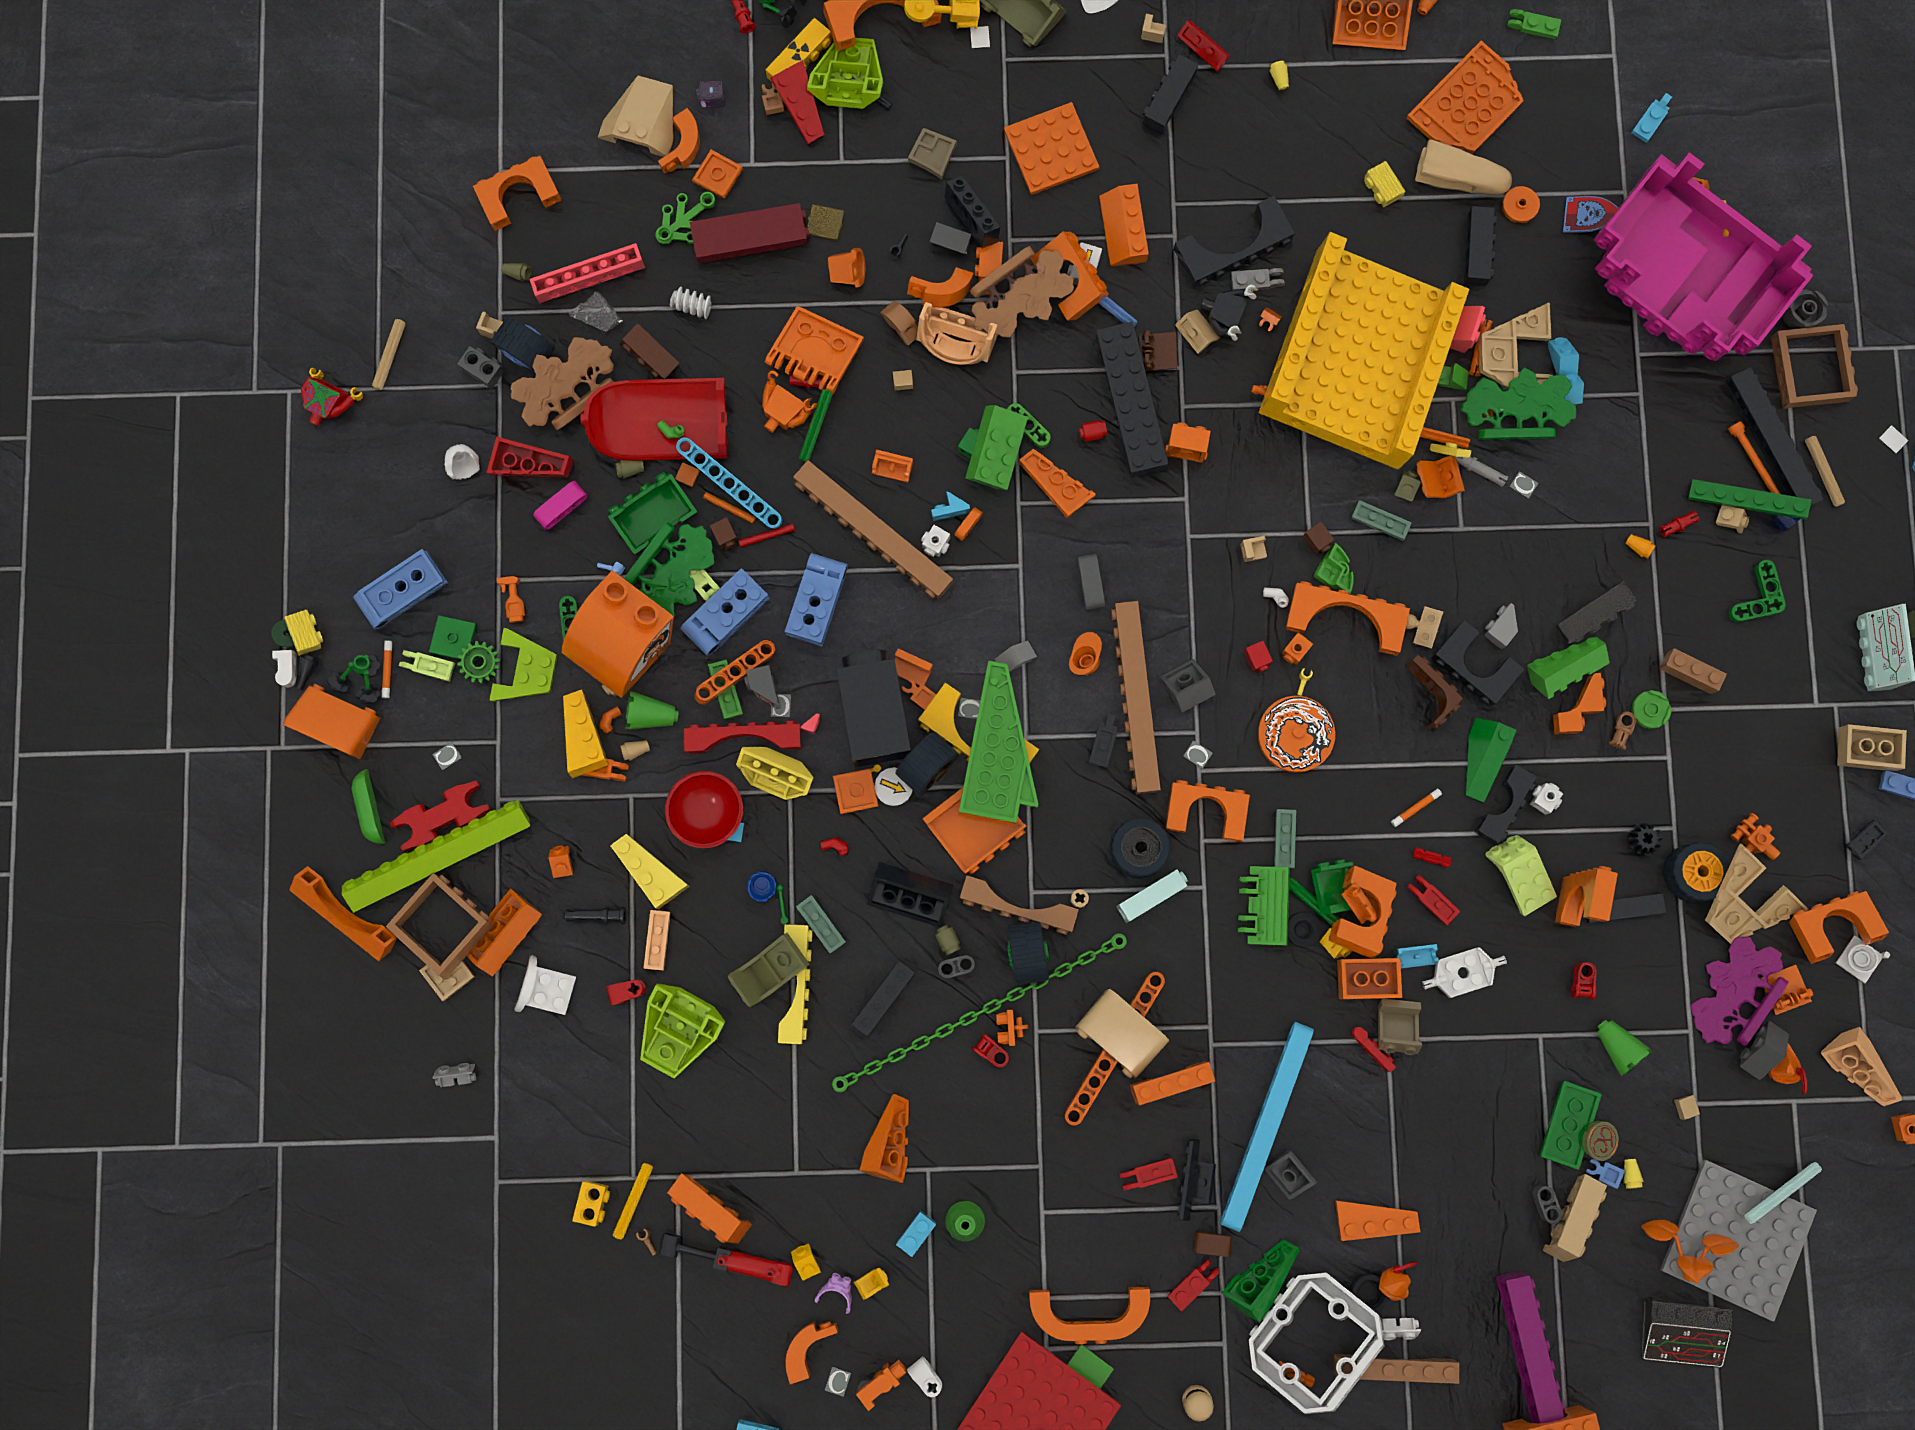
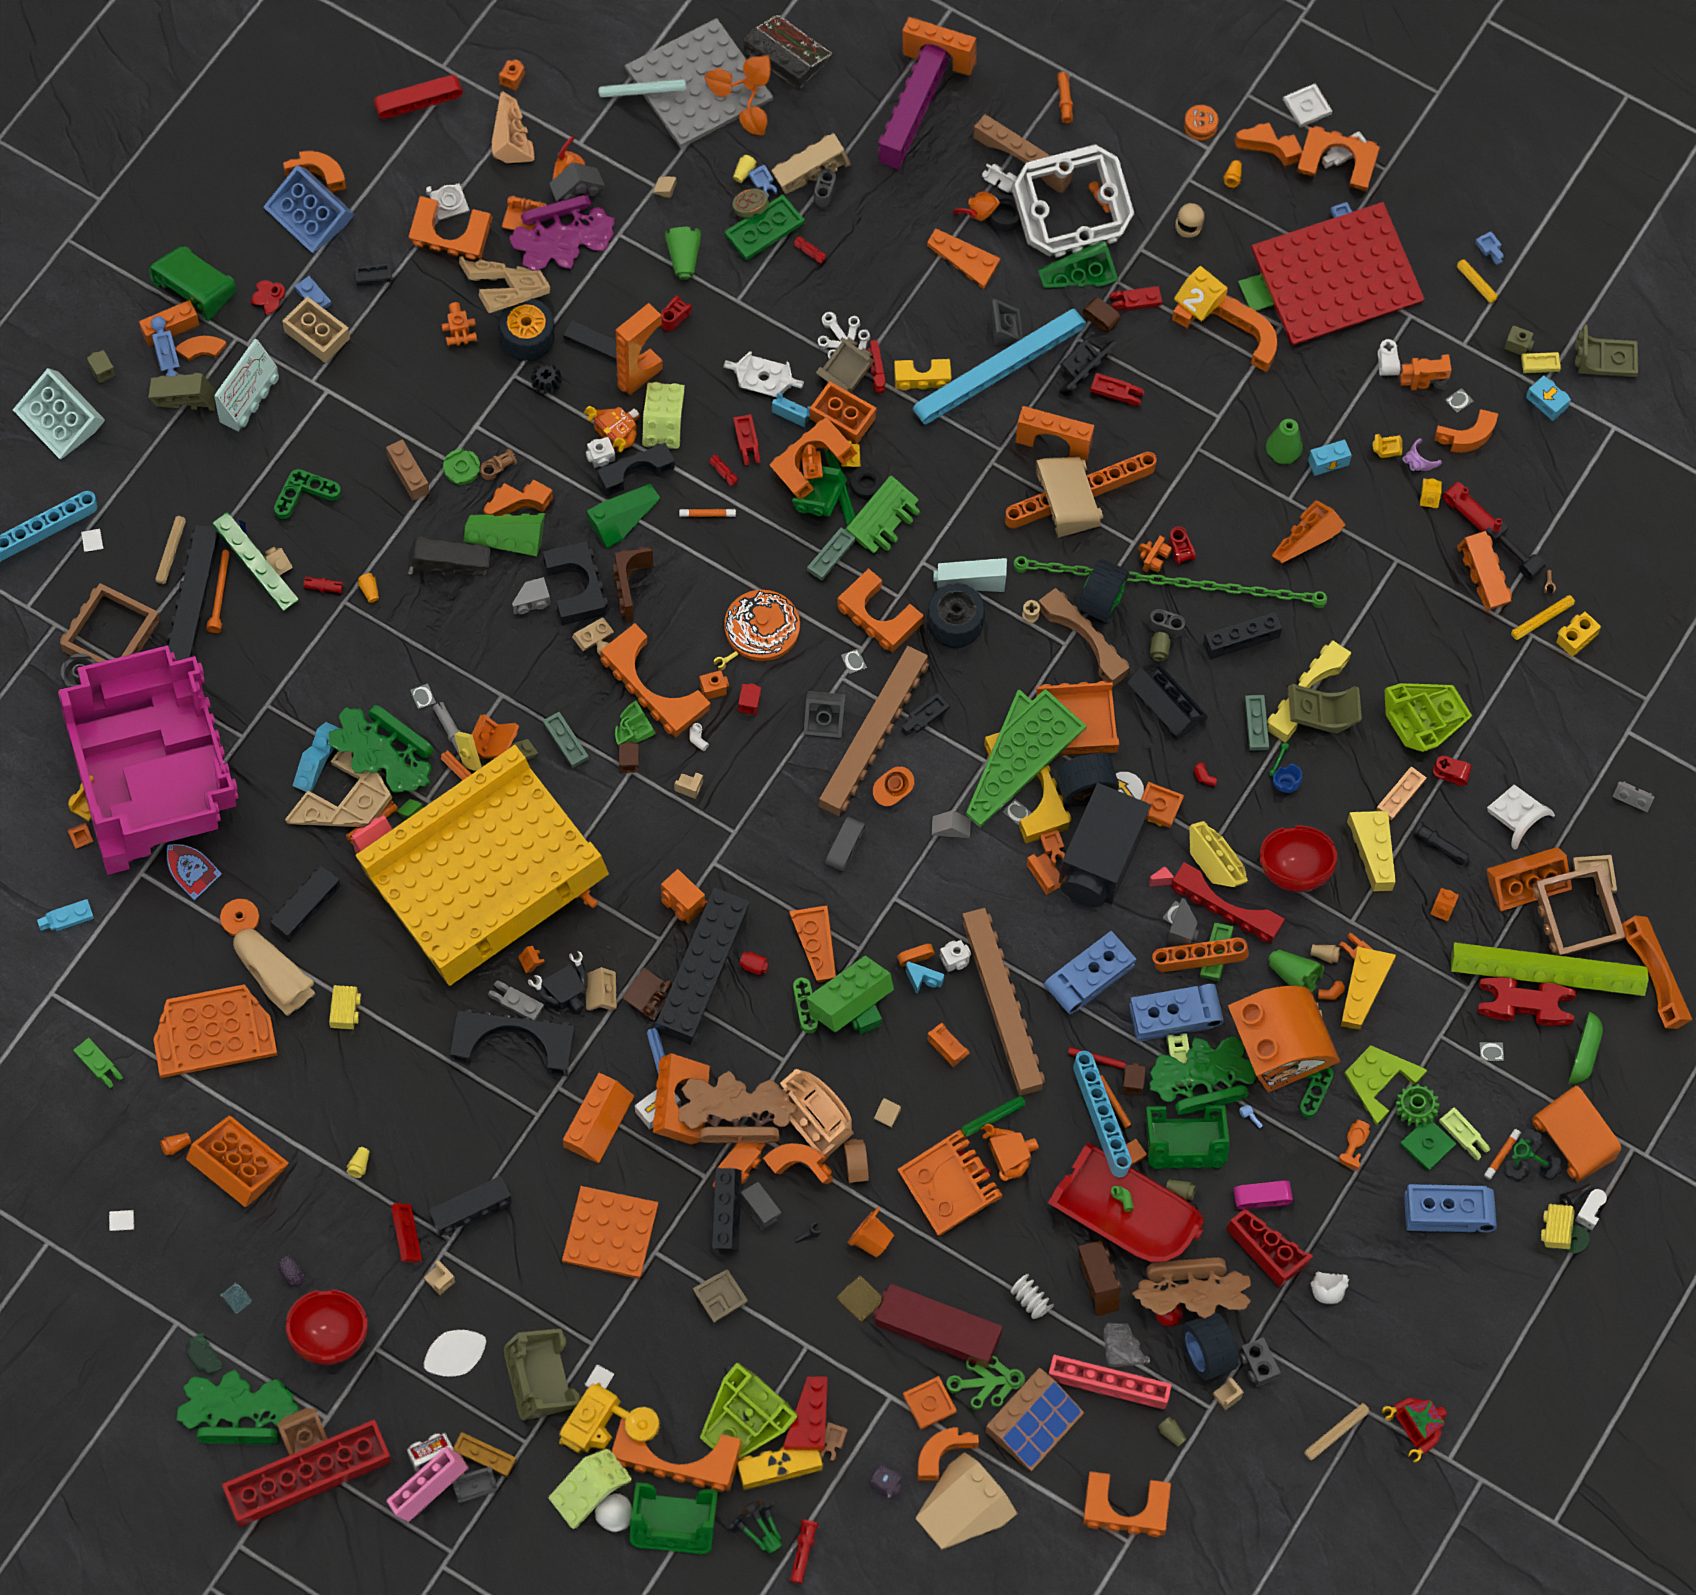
camera: 150 degrees left, 15 degrees down
(629, 211) = (1034, 1420): none -> slope
(1134, 1320) = (1201, 293): none -> yellow slope
(1313, 1077) = (908, 378): none -> yellow arch
(1419, 1058) = (839, 333): none -> white plant
(1514, 1131) = (809, 249): none -> red axle
(1552, 832) = (615, 425): none -> orange torso

